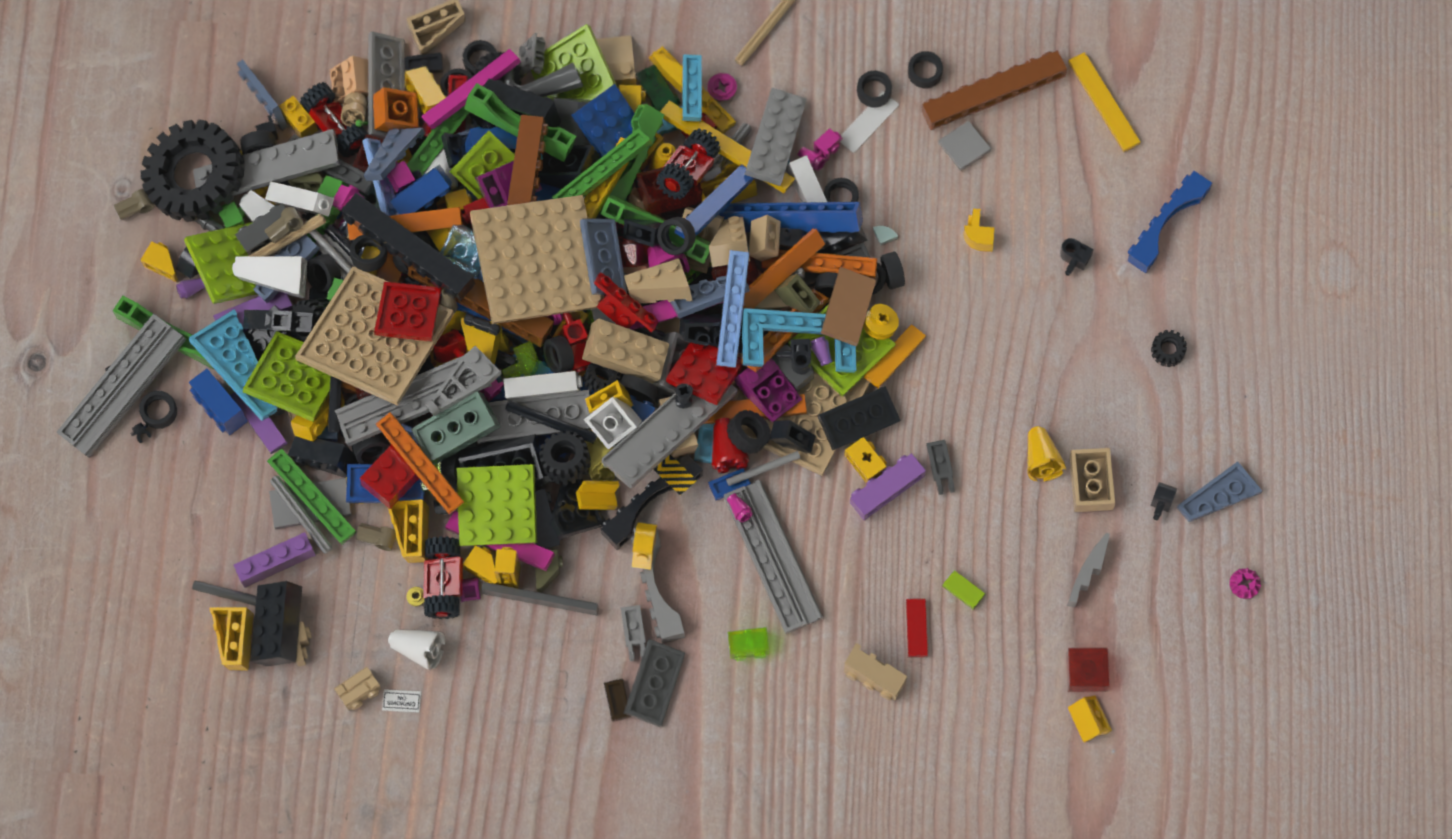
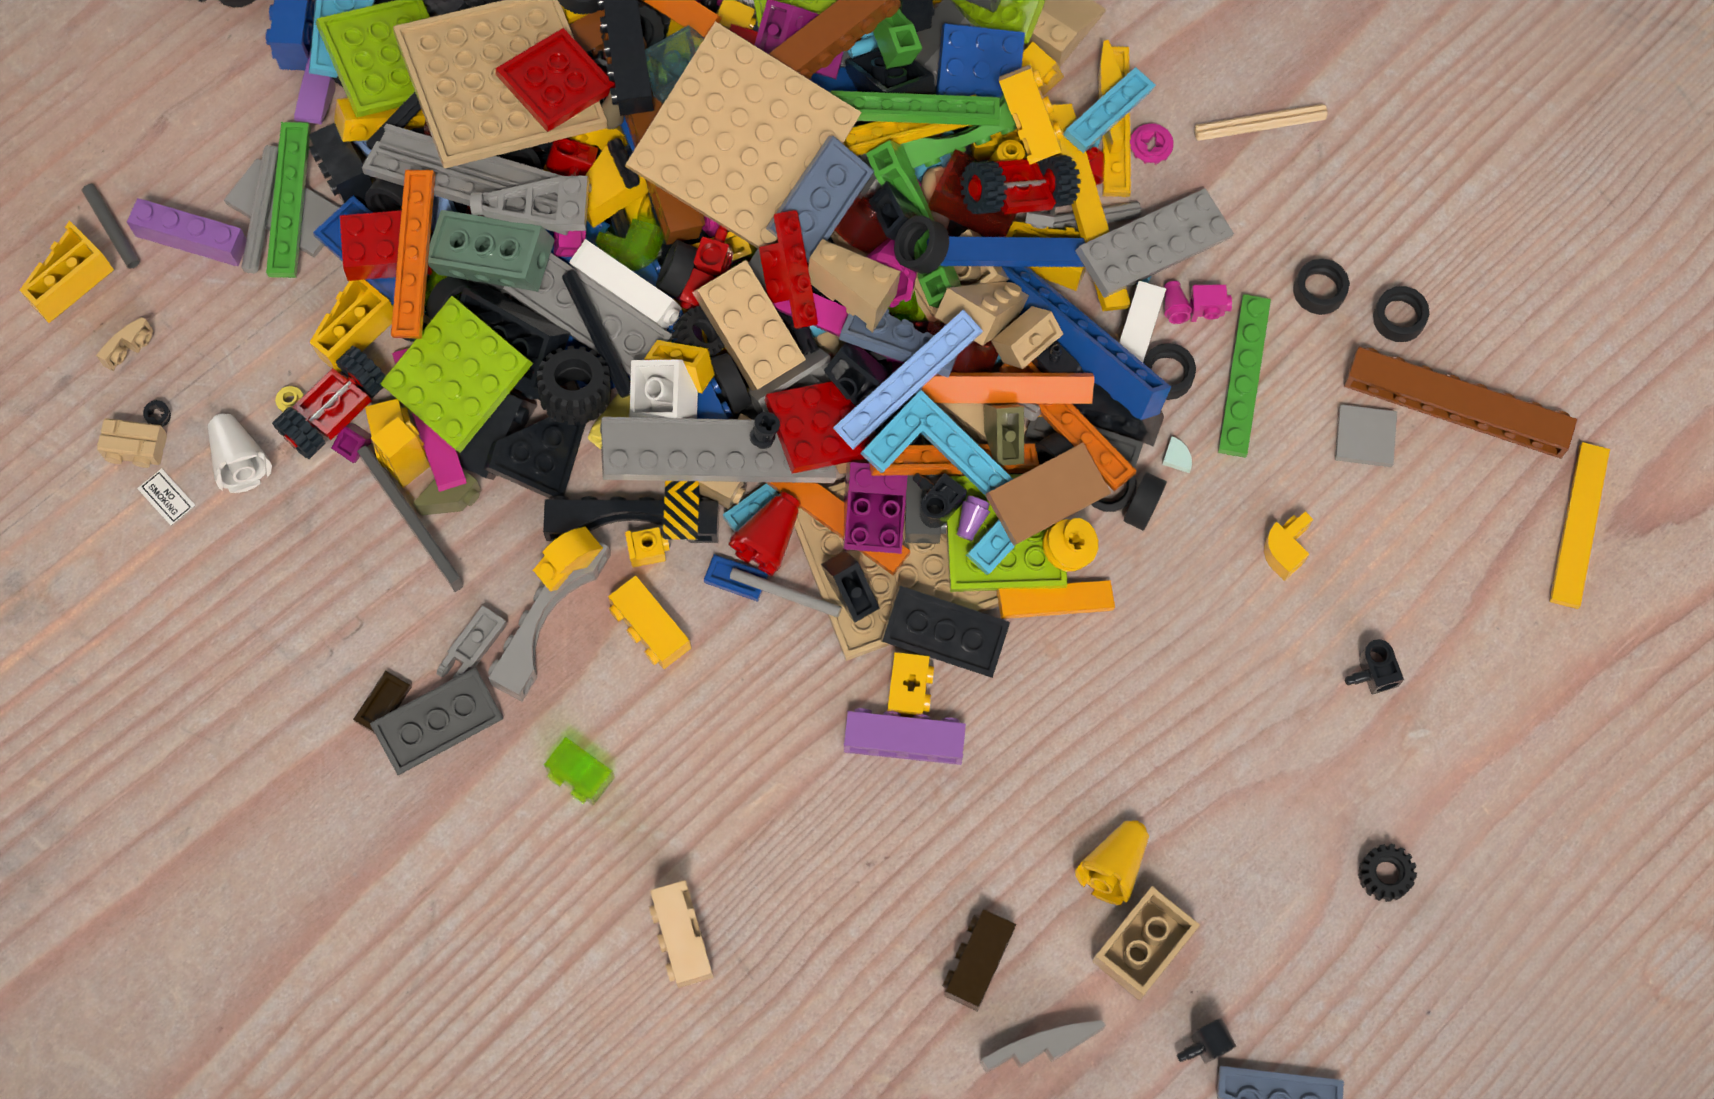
camera: 40 degrees right, 0 degrees up
(276, 623) = (117, 297): black brick -> none
(351, 659) = (148, 409): none -> black bush
(380, 537) = (312, 297): dark tan piece -> none
(597, 495) = (576, 461): yellow panel -> none
(656, 88) = (1077, 82): dark green door -> none
(662, 123) = (1031, 113): none -> yellow wedge
(669, 513) = (644, 555): none -> yellow brick
(710, 543) = (648, 623): none -> yellow brick
(739, 508) = (714, 613): dark pink cone -> none
(741, 439) = (823, 531): black tyre -> none
(775, 560) = (702, 701): light grey plate -> none
(866, 124) = (1286, 318): white sticker -> none
(878, 166) = (1244, 376): none -> bright green plate
(916, 628) = (782, 928): red tile -> none
(940, 465) = (989, 767): dark grey hinge -> none
(963, 590) = (877, 933): lime tile -> none
(1022, 558) = (978, 959): none -> dark brown brick
(1191, 193) = (1587, 717): blue arch -> none

